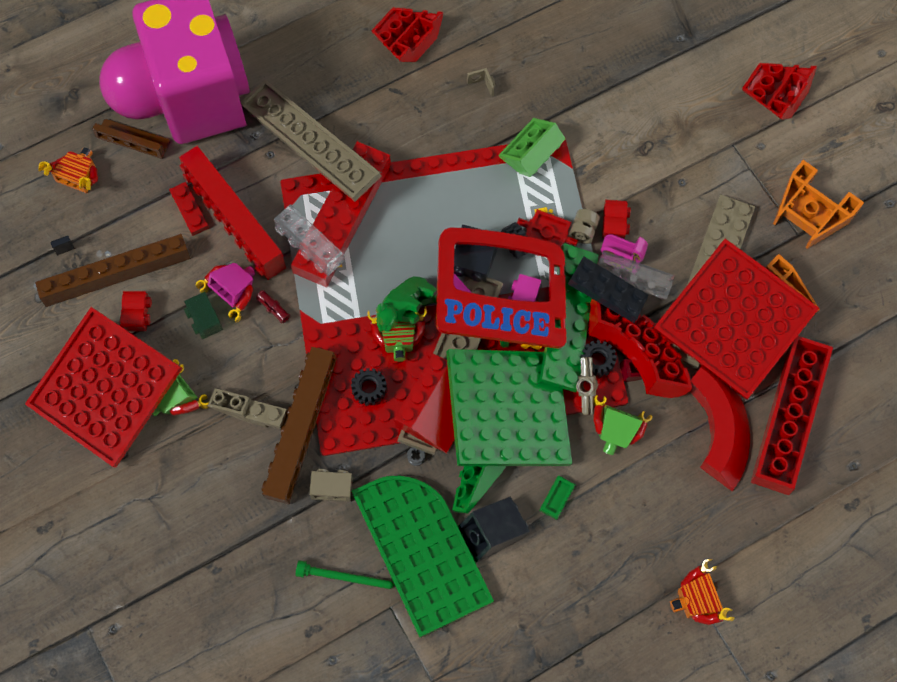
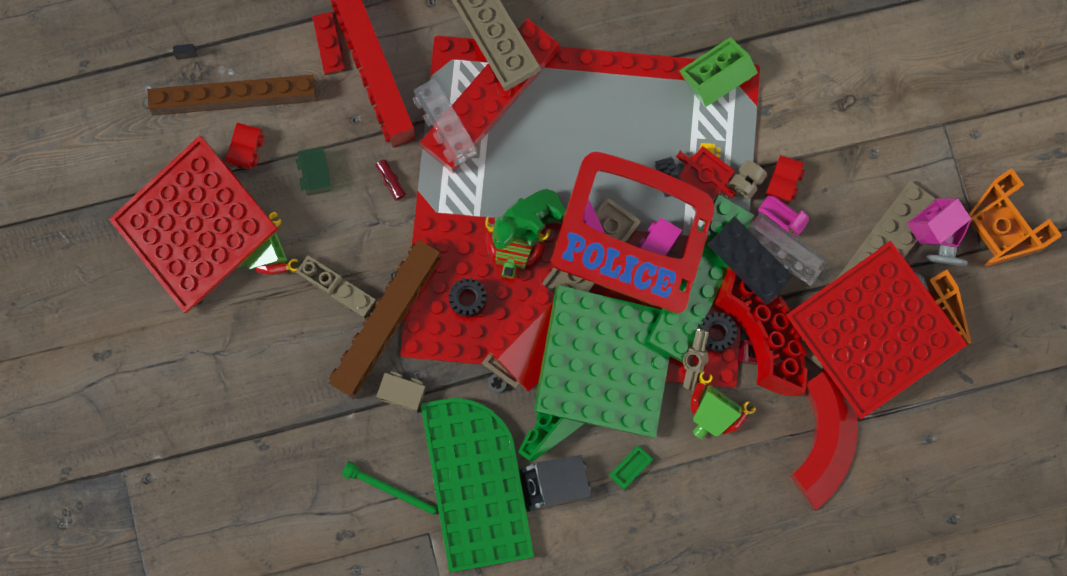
camera: 15 degrees right, 10 degrees up
(231, 284) = (352, 144): dark pink torso -> none
(473, 260) = (614, 190): black slope -> none
(763, 220) = (942, 225): none -> dark pink piece
(780, 87) = (1017, 72): red wedge -> none
(792, 415) = (903, 448): red brick -> none

